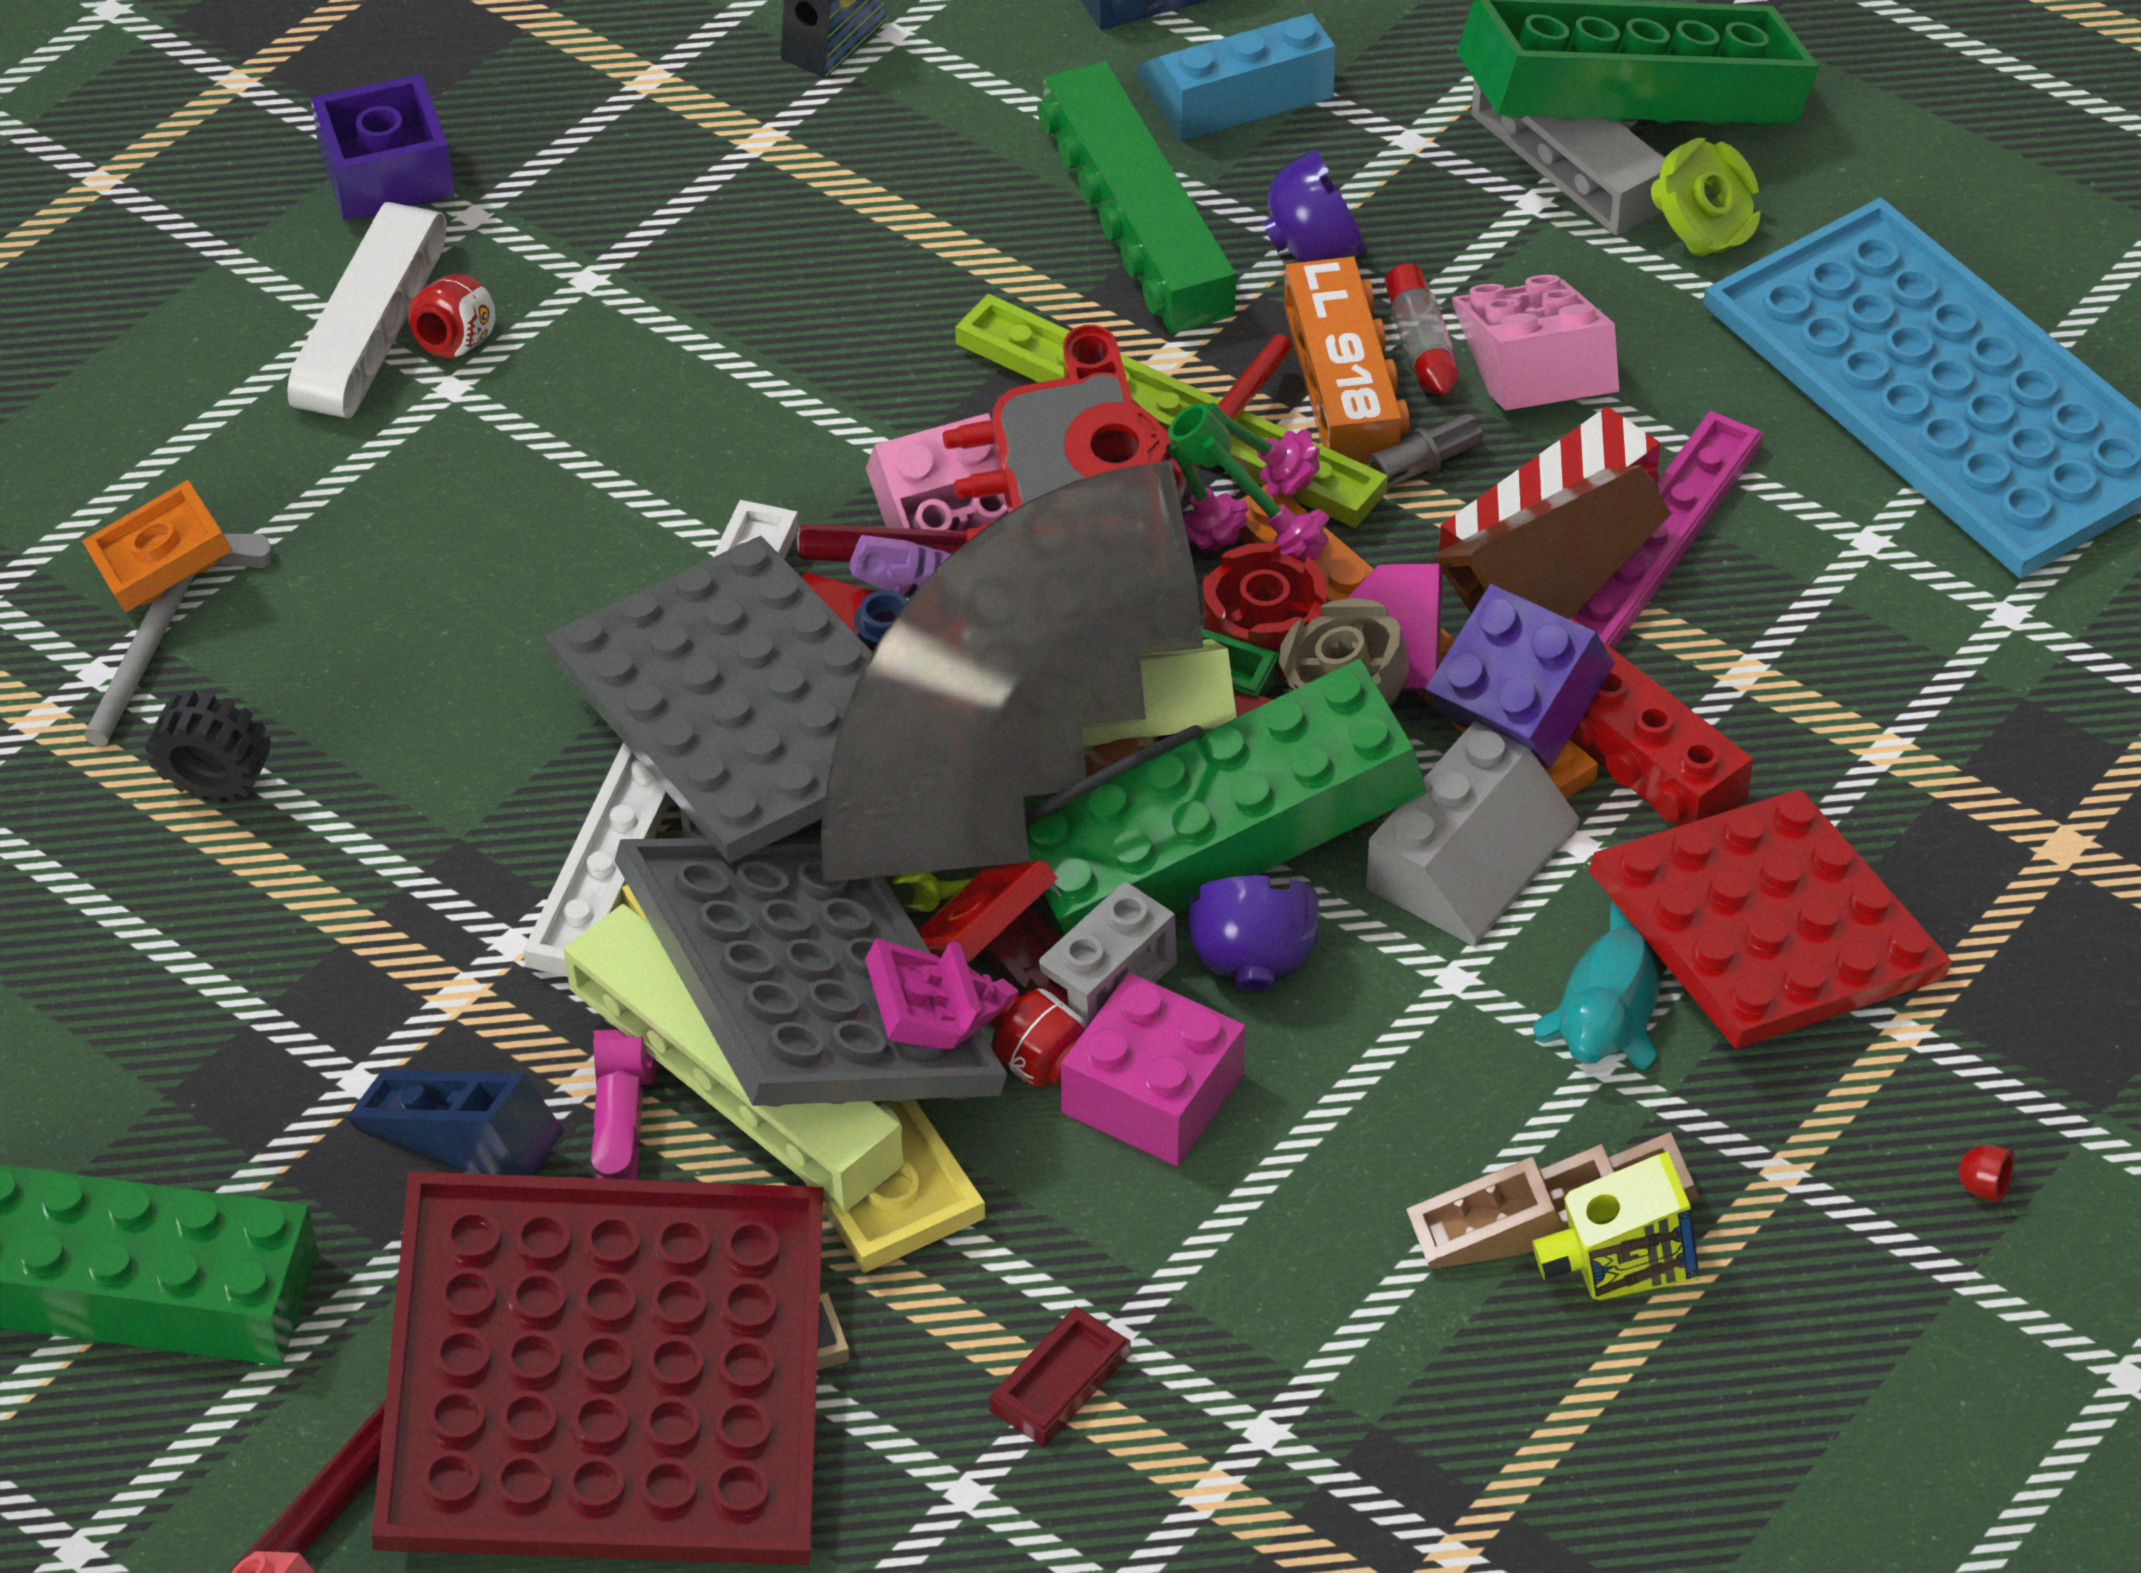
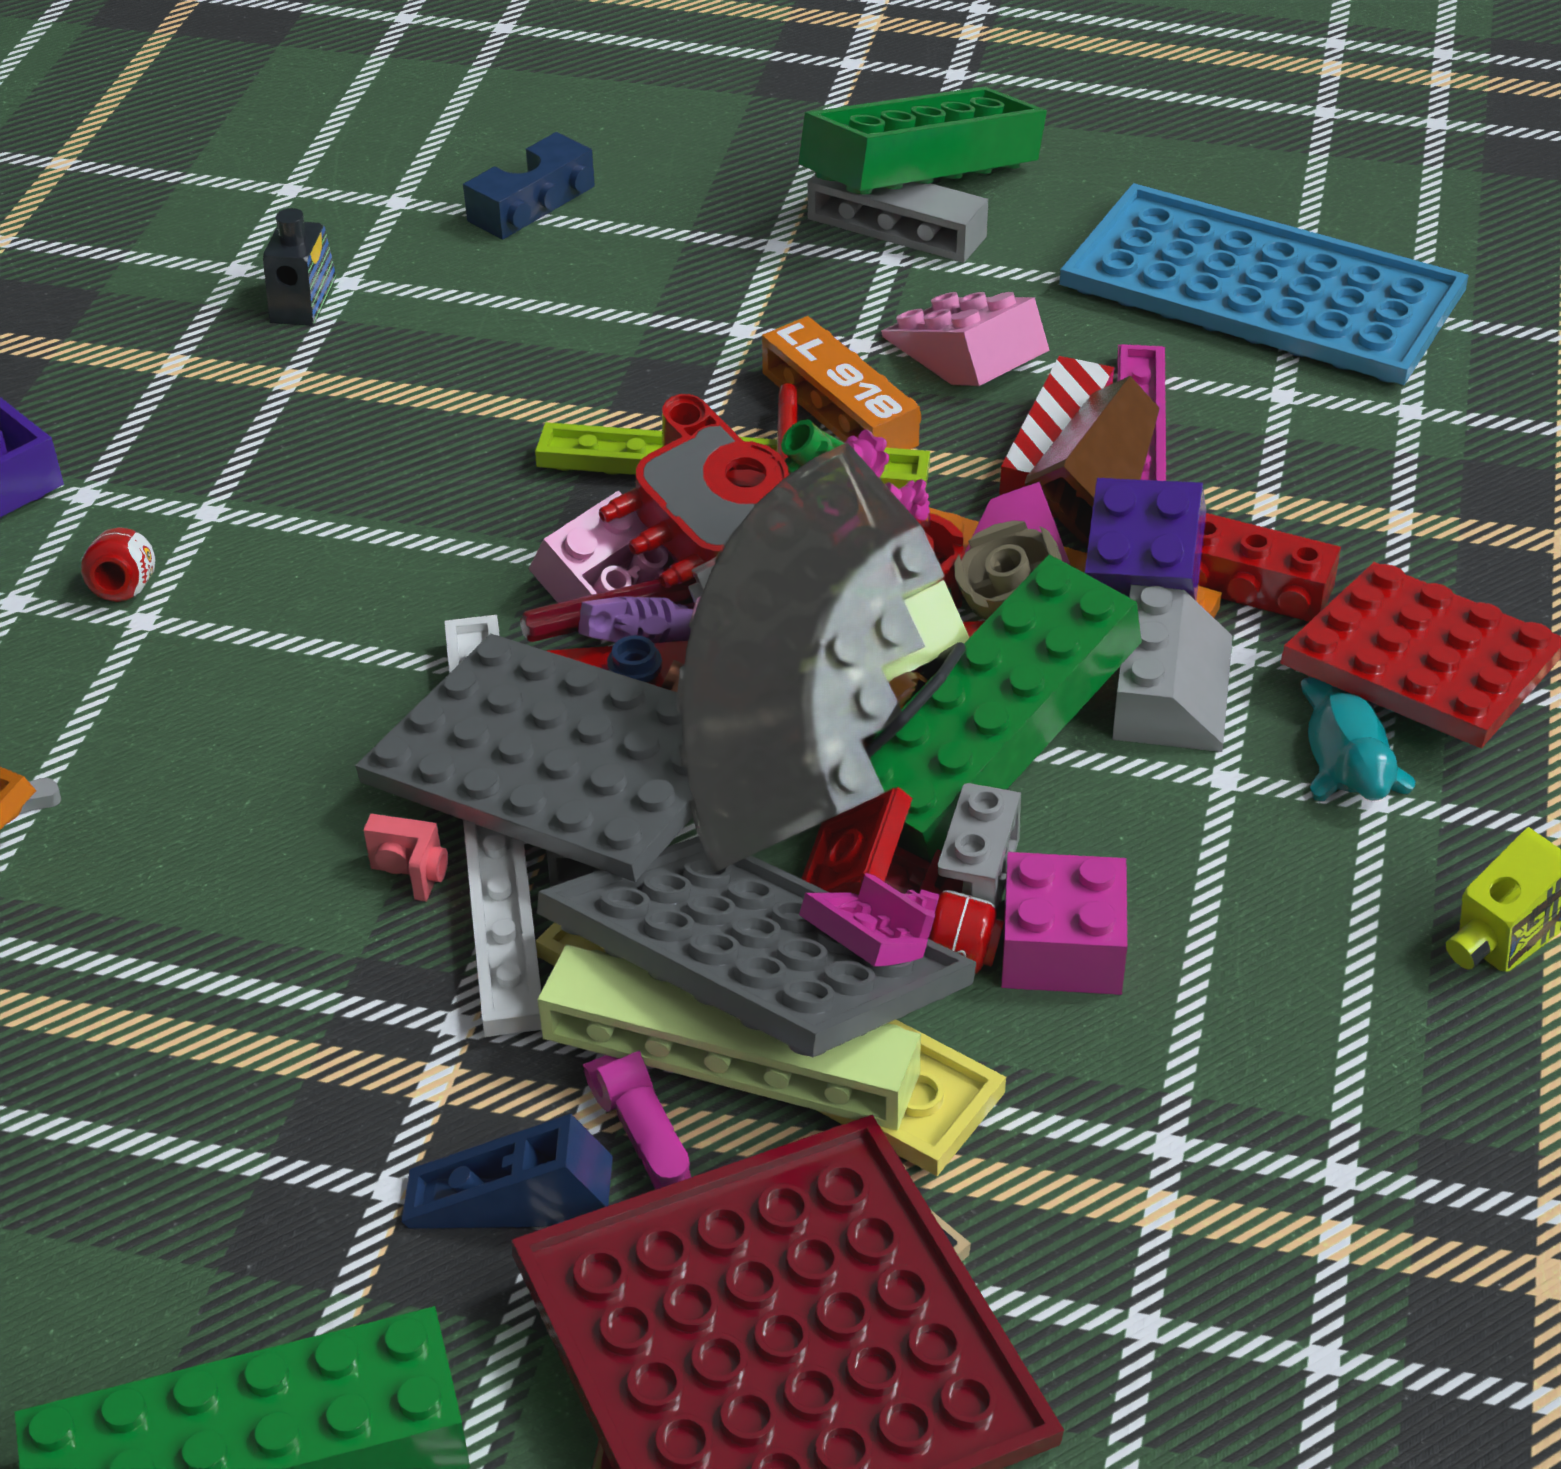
camera: 25 degrees left, 5 degrees down
(208, 747) = (84, 974): black tyre -> none
(366, 310) = (40, 584): white beam -> none
(558, 745) = (407, 848): none -> coral bracket
(929, 891) = (787, 855): lime hand -> none
(1059, 1376) = (1153, 1196): dark red tile -> none
(1138, 197) = (612, 327): green brick -> none
(1242, 77) = (633, 234): dark azure slope -> none
(1253, 930) = (1070, 790): dark purple cylinder -> none
(1310, 213) = (753, 299): dark purple cylinder -> none
(1421, 329) = (881, 354): piece -> none
(1426, 450) = (941, 428): flat silver axle -> none
(1520, 1204) = (1415, 916): medium nougat slope -> none
(1682, 197) = (1020, 211): lime plate -> none

